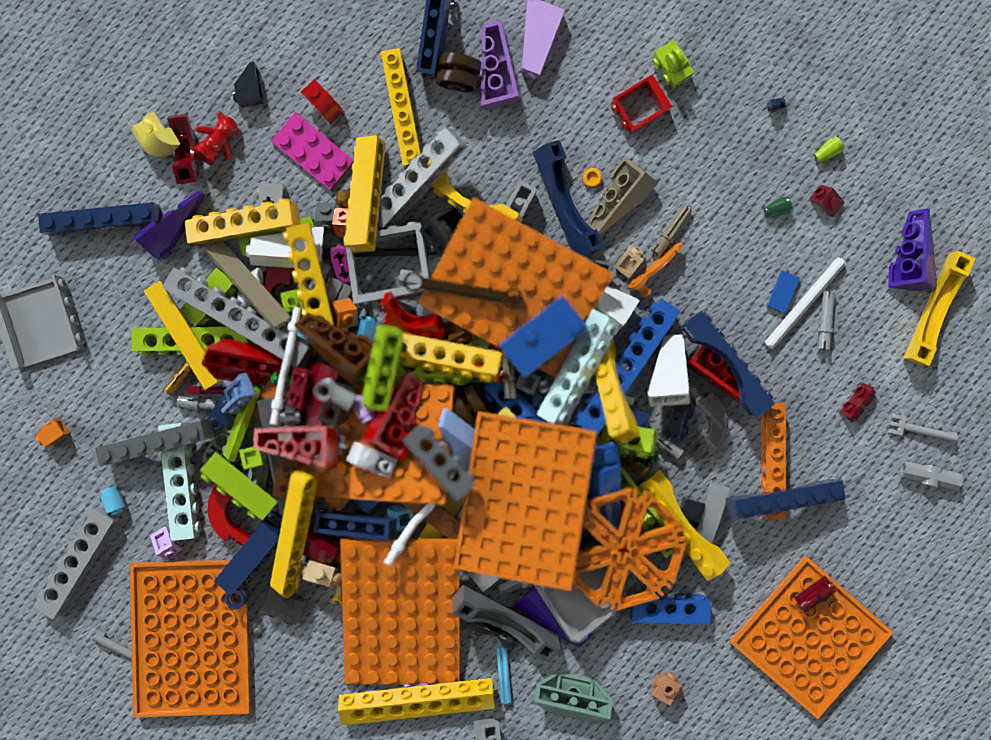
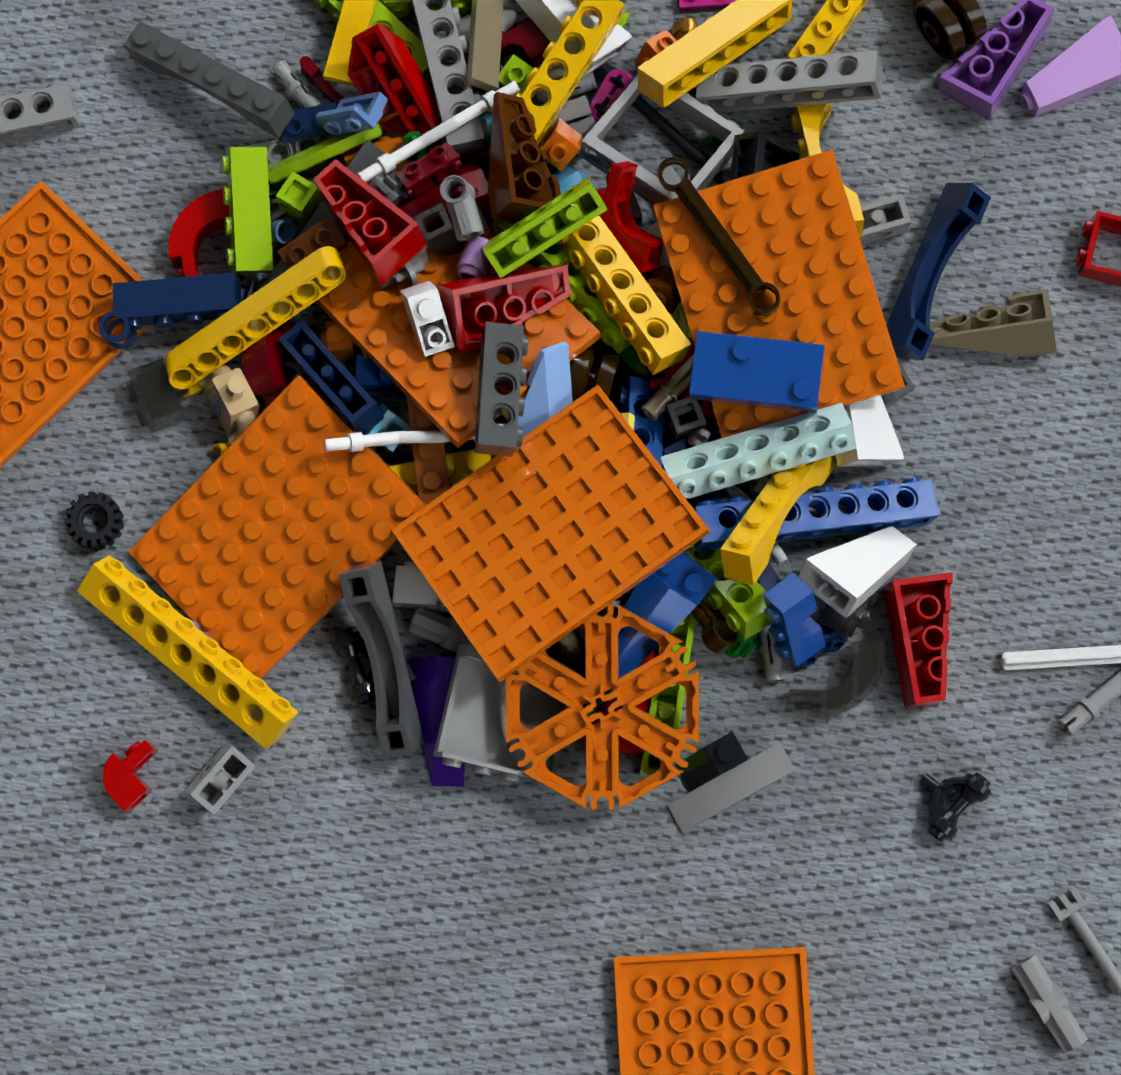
camera: 45 degrees right, 10 degrees down
(112, 500) = (95, 97): medium azure brick -> none
(163, 545) = (100, 199): lavender bracket -> none
(179, 378) = (304, 43): pearl gold pin -> none
(179, 529) = (170, 155): light aqua brick -> none
(262, 478) = (285, 233): none -> medium blue hinge
(311, 696) = (79, 510): none -> black tyre
(324, 216) = (643, 28): dark grey bracket -> none
(503, 675) = (314, 727): medium azure axle -> none
(573, 697) = (366, 829): sand green wedge -> none
(592, 177) = (986, 278): light orange tile -> none
(630, 261) = (937, 408): tan bracket -> none
(639, 281) = (923, 441): orange brick -> none
(666, 687) = (474, 925): nougat brick -> none
(667, 428) = (789, 613): none -> blue arch
(669, 233) = (1007, 423): dark tan axle -> none
(698, 615) = (611, 887): blue brick -> none
(705, 555) = (688, 817): yellow arch -> none
(751, 394) = (940, 557): dark blue arch -> none
(772, 502) = (849, 847): dark blue arch -> none
(773, 453) = (877, 795): orange brick -> none
(783, 291) = (1081, 617): blue tile -> none
(810, 417) = (971, 789): none -> black piece
(815, 594) = (771, 998): dark red hinge -> none
(863, 395) = (1060, 830): dark red hinge -> none

